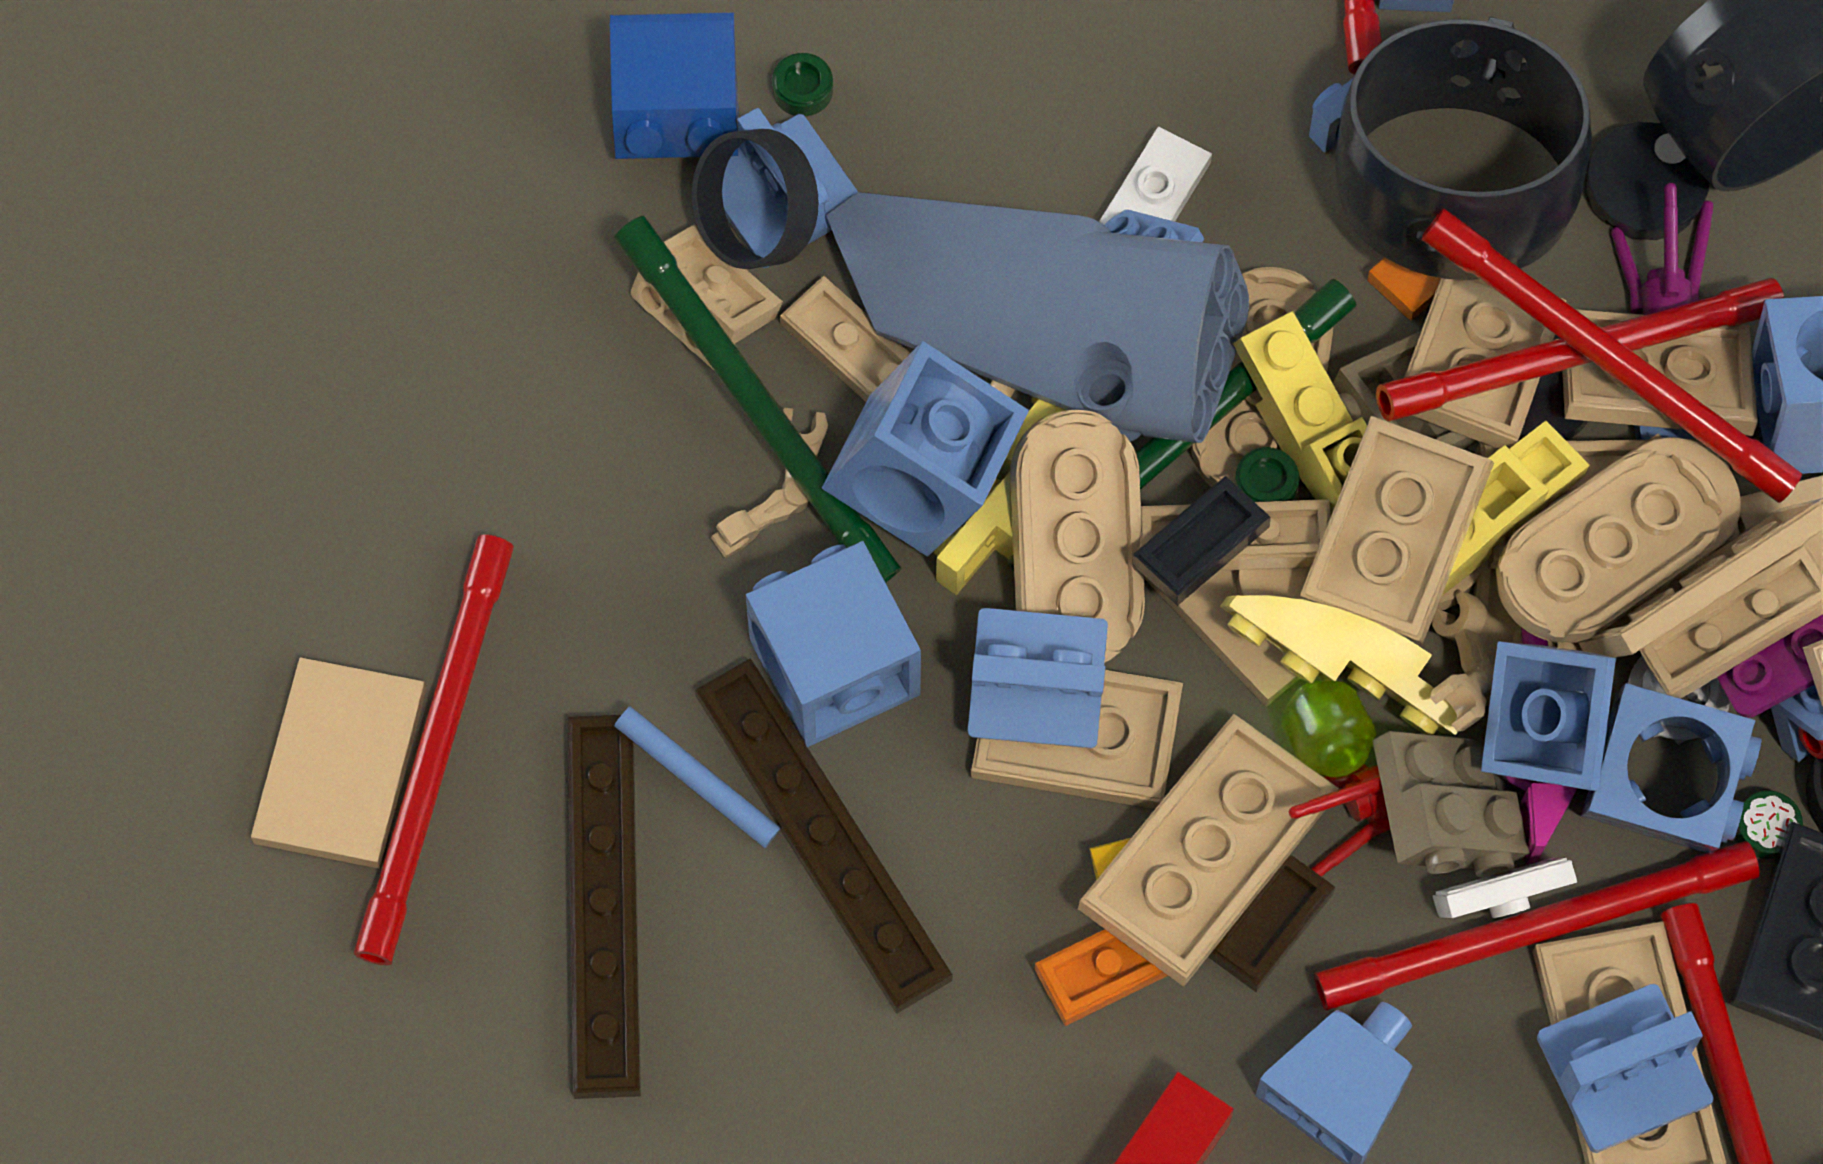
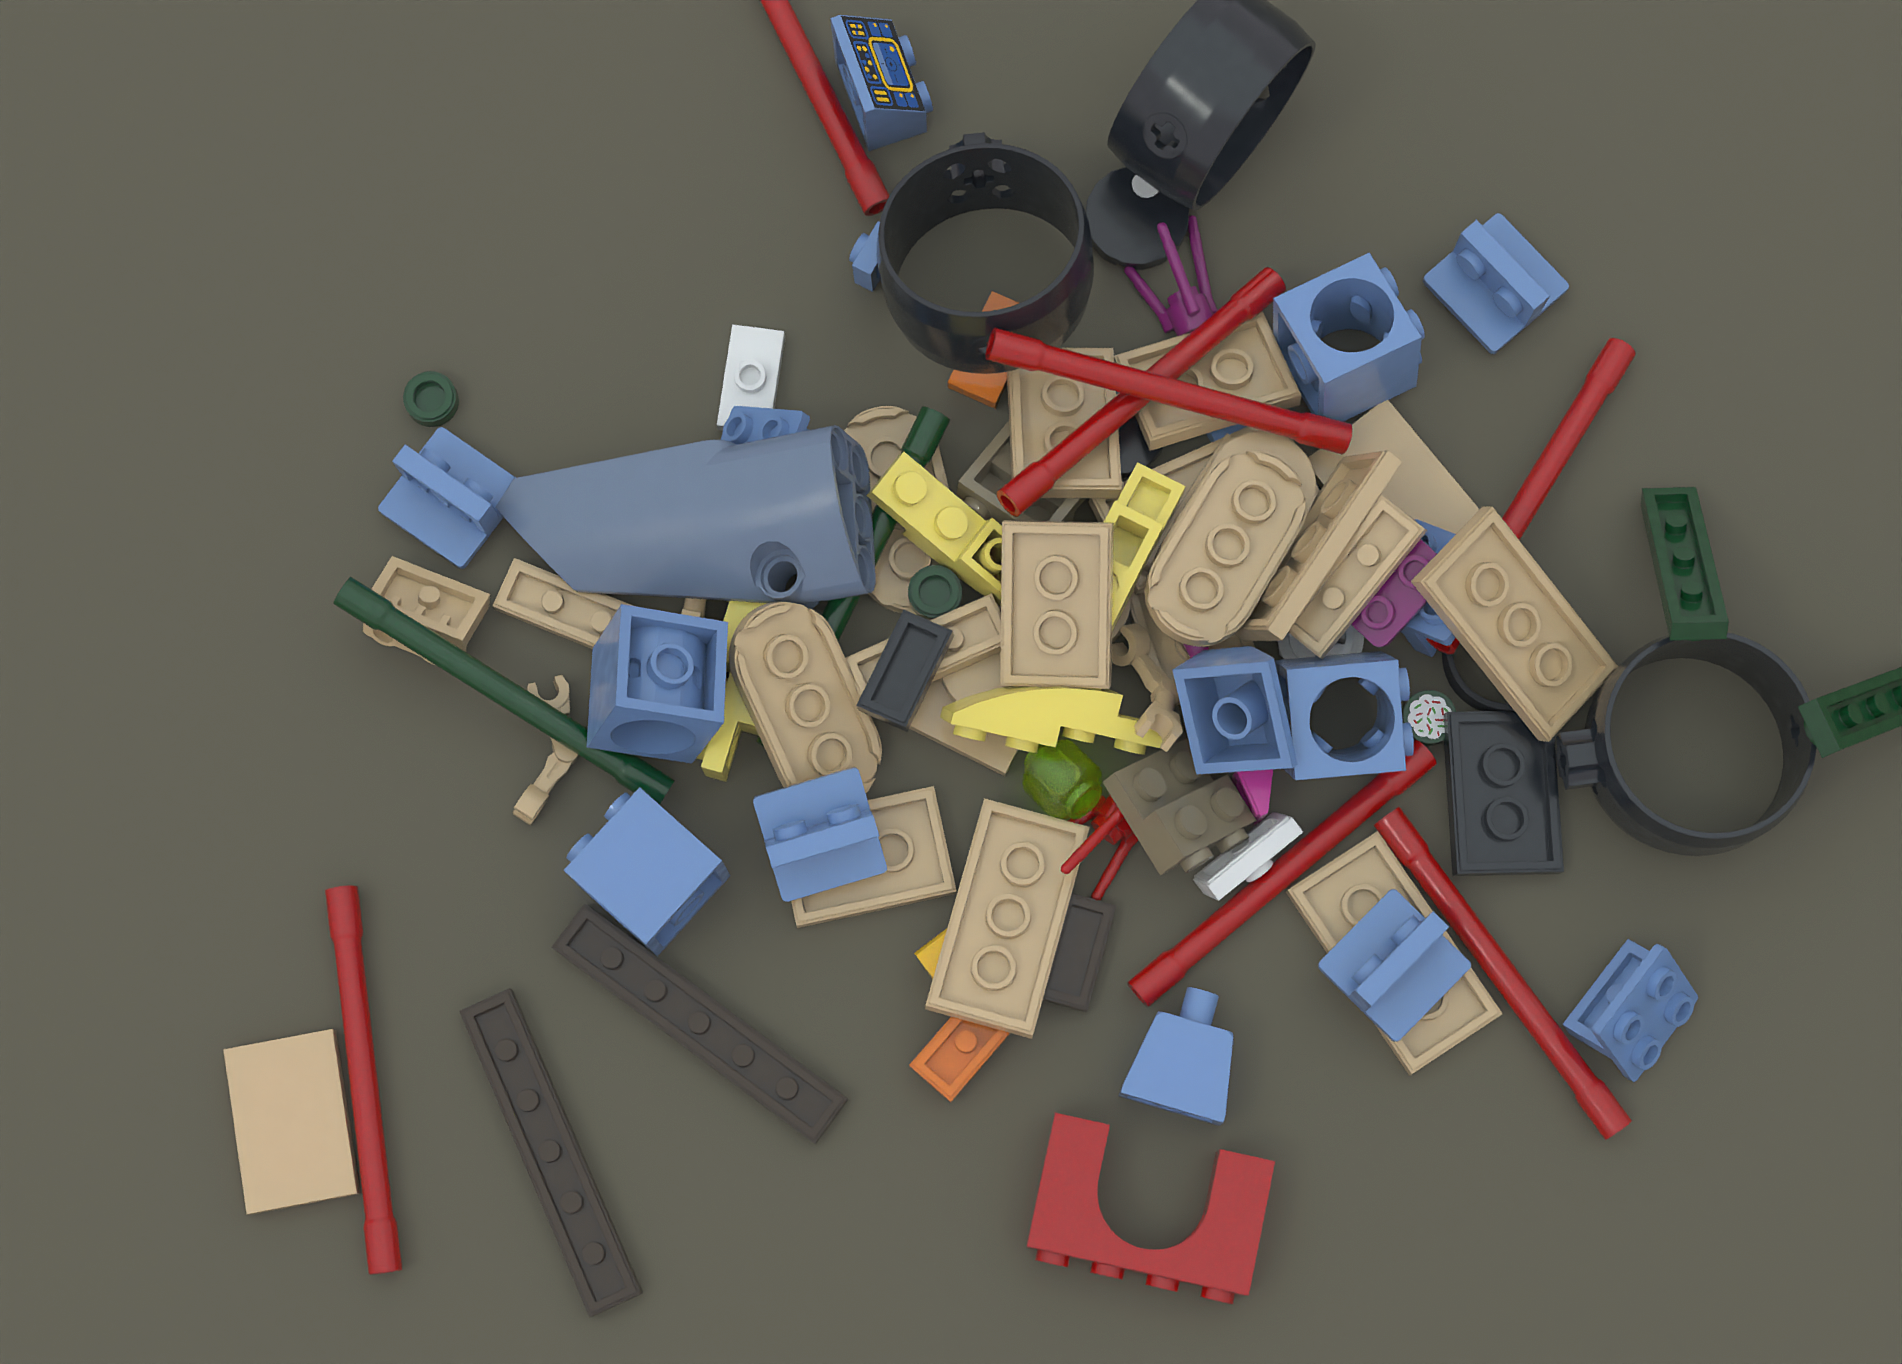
camera: 20 degrees left, 10 degrees up
(672, 83) = (328, 449): blue slope -> none
(697, 777) = (582, 1019): medium blue bar -> none
(709, 207) = (404, 546): black tyre -> none

